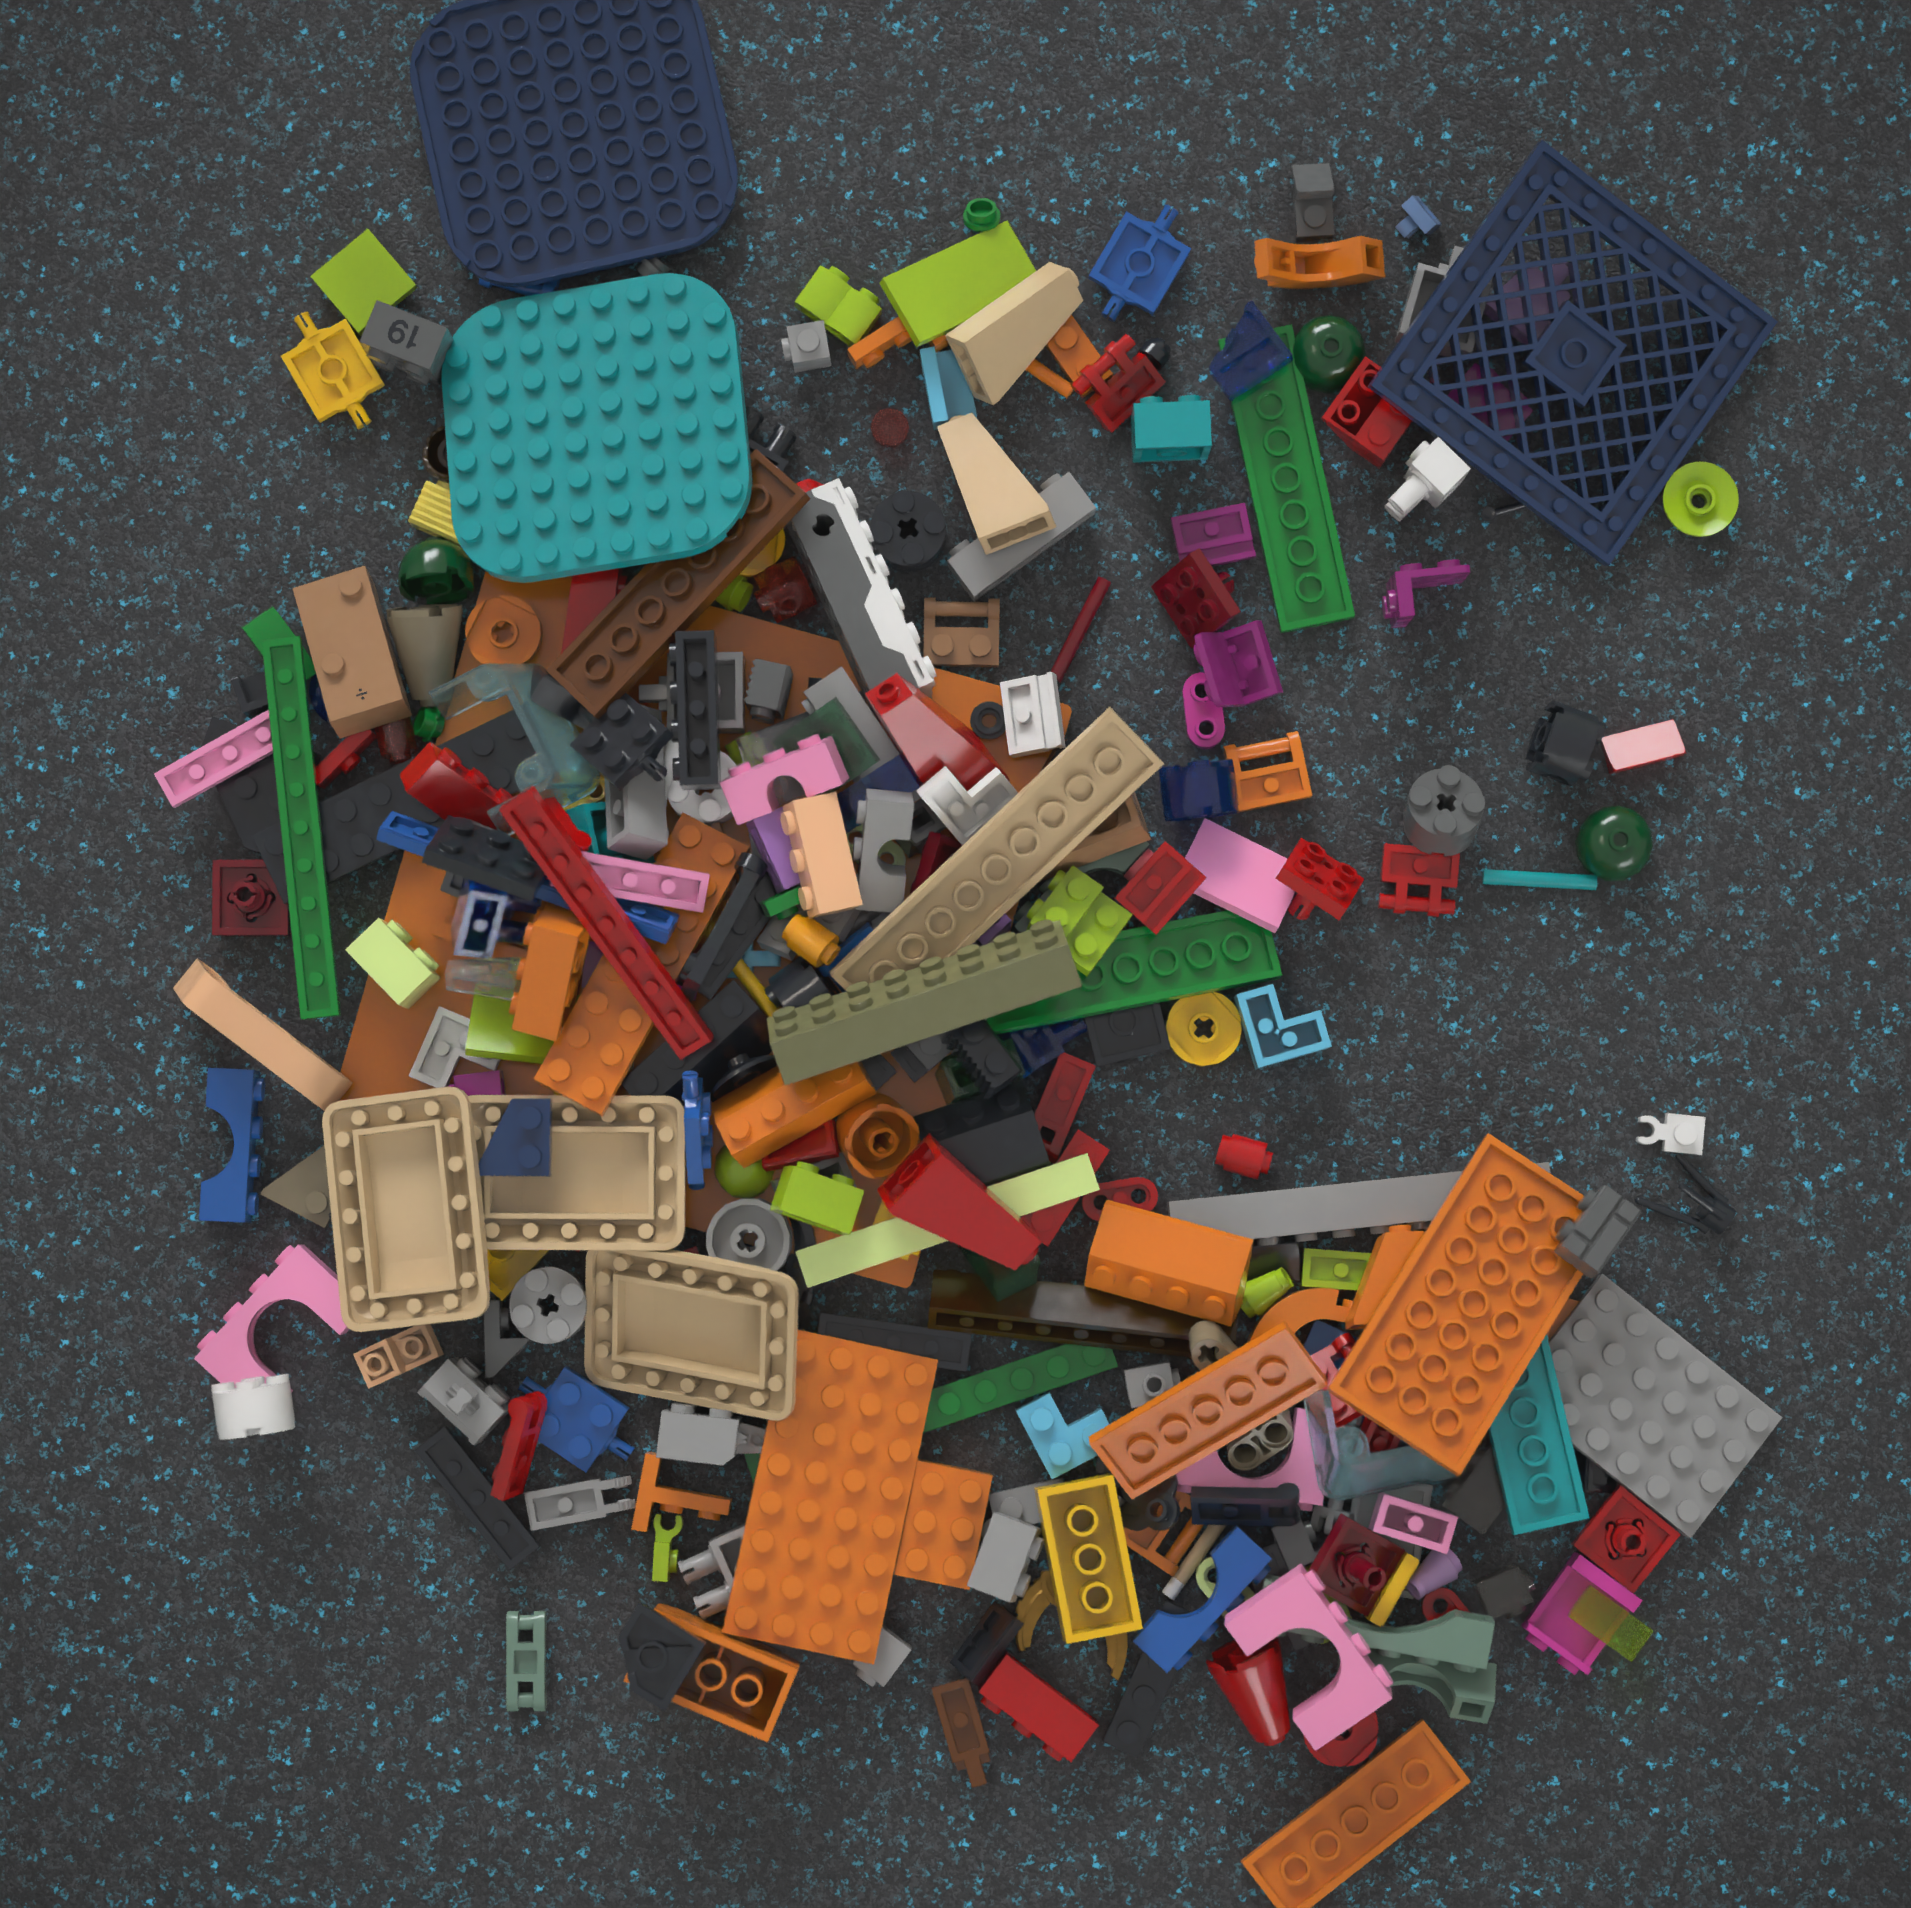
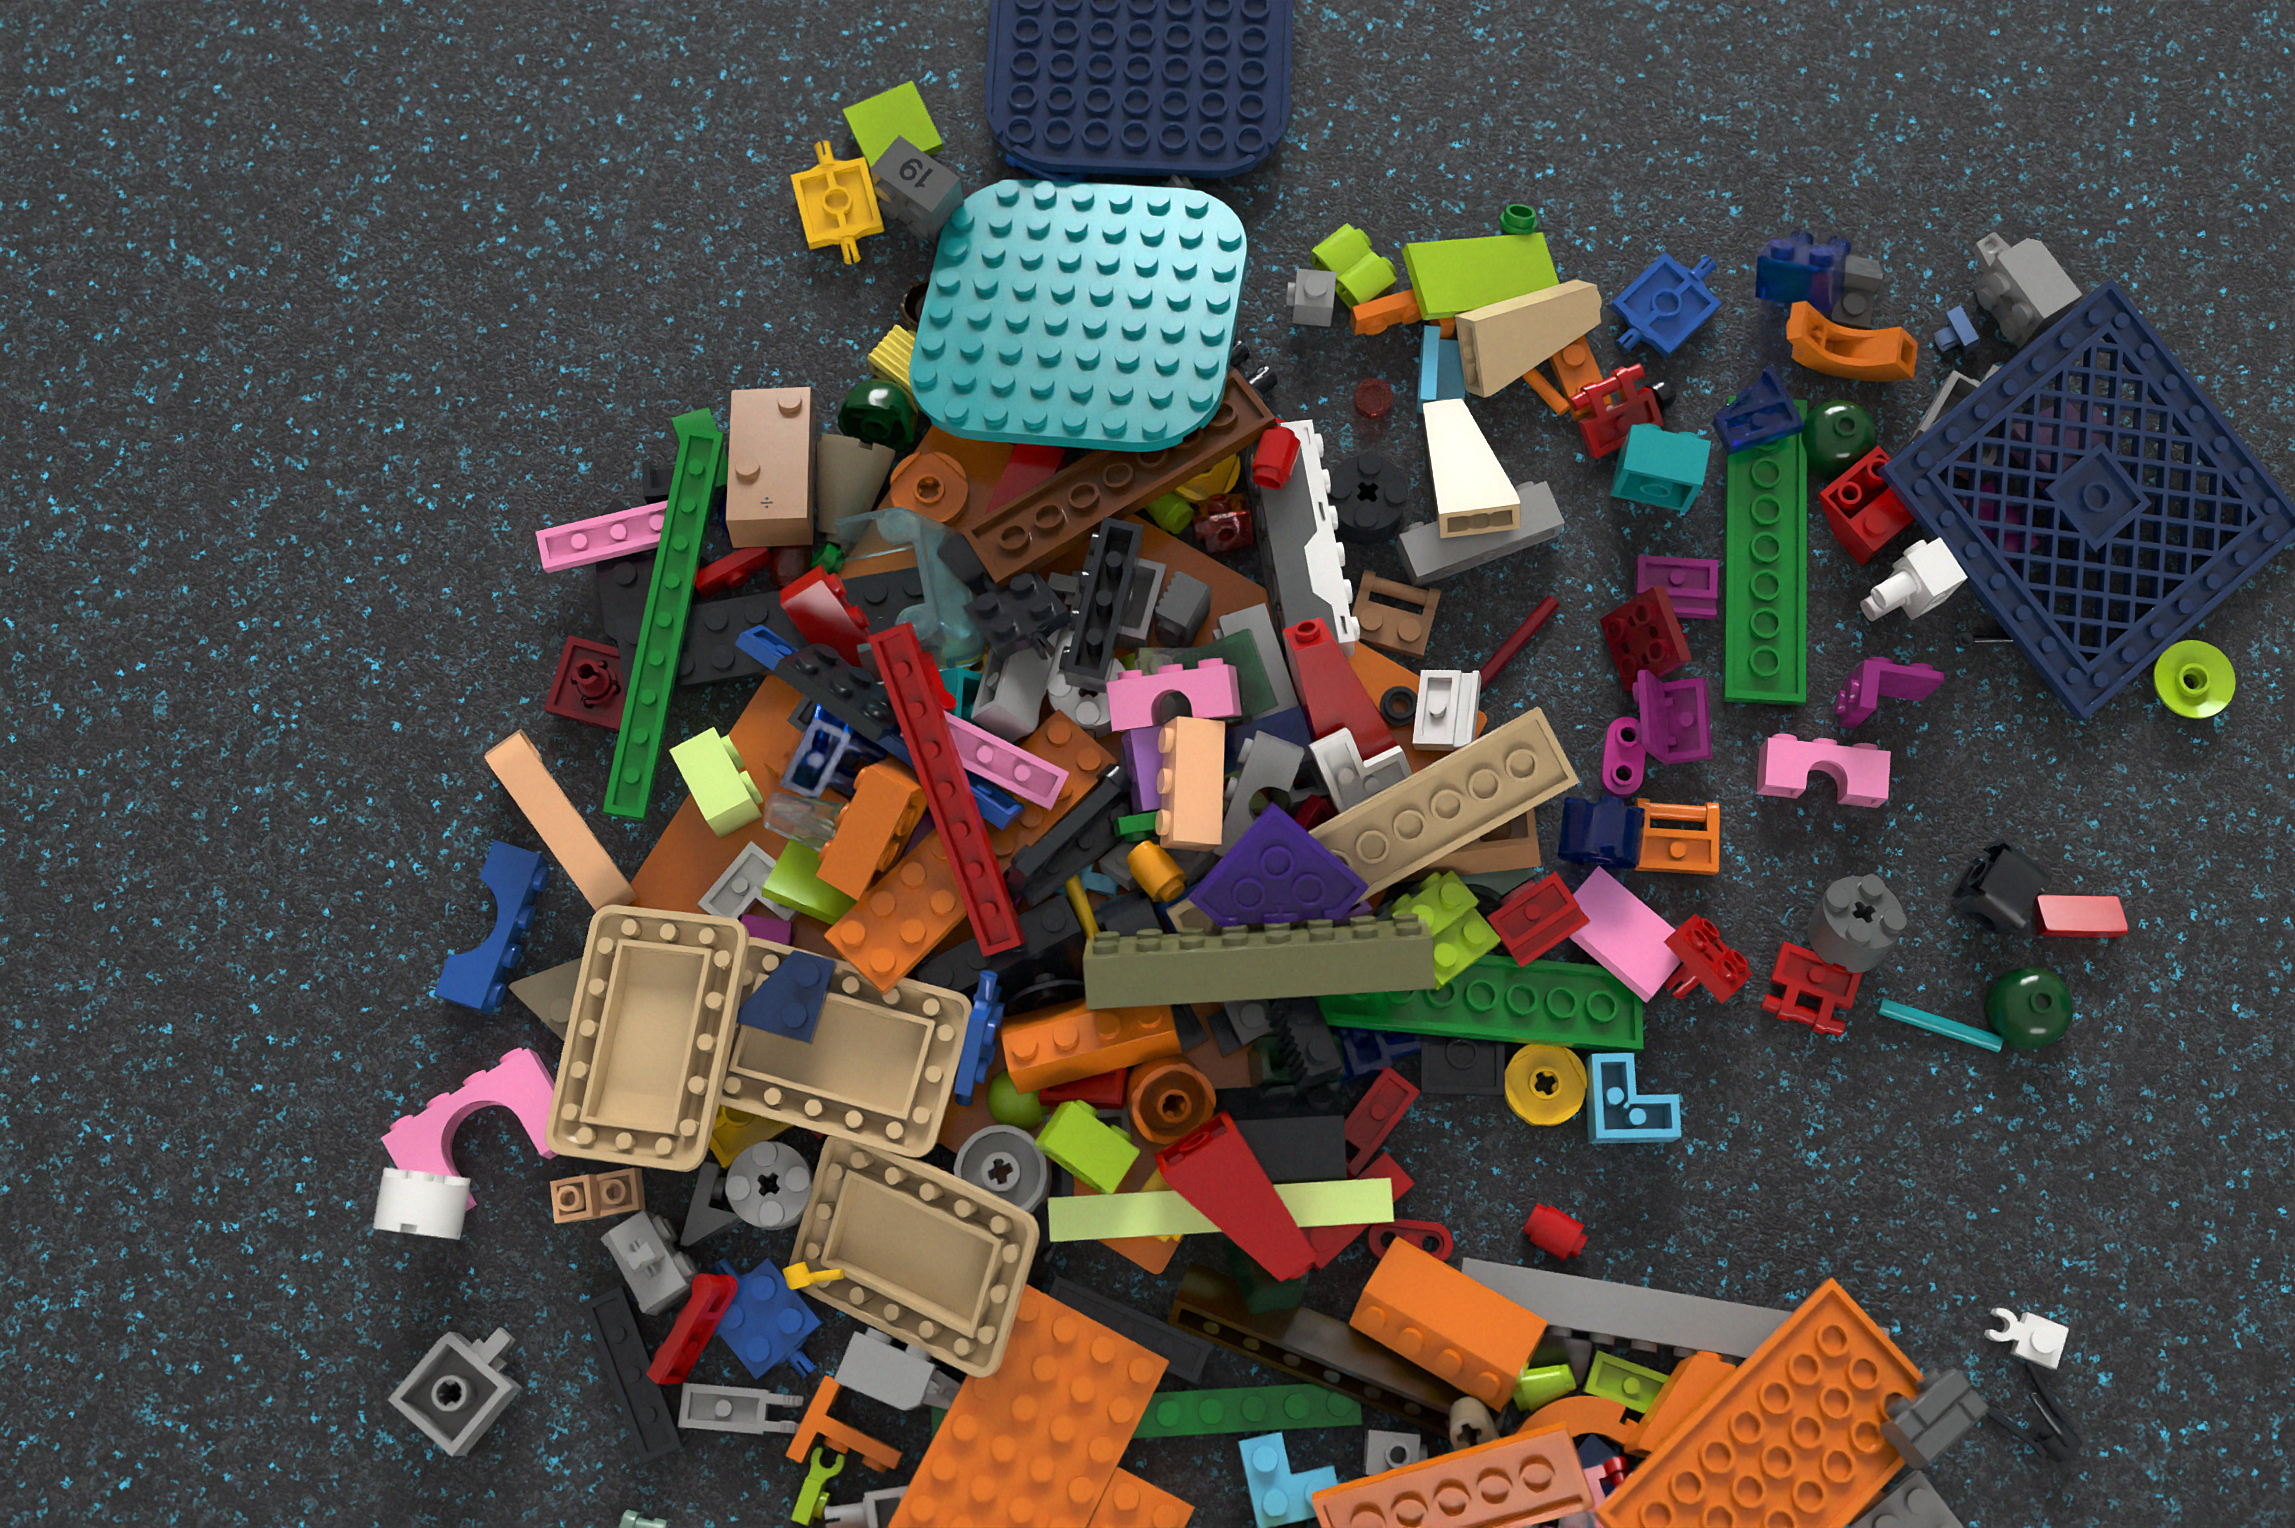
camera: 15 degrees right, 10 degrees down
(325, 1530) = (484, 1386): none -> light grey hinge
(597, 1375) = (799, 1276): none -> yellow hand
(815, 528) = (1275, 457): none -> red brick
(919, 921) = (1277, 877): none -> dark purple plate
(1258, 202) = (1799, 271): none -> clear blue brick
(1417, 668) = (1857, 770): none -> bright pink arch
(1465, 161) = (2022, 287): none -> light grey hinge

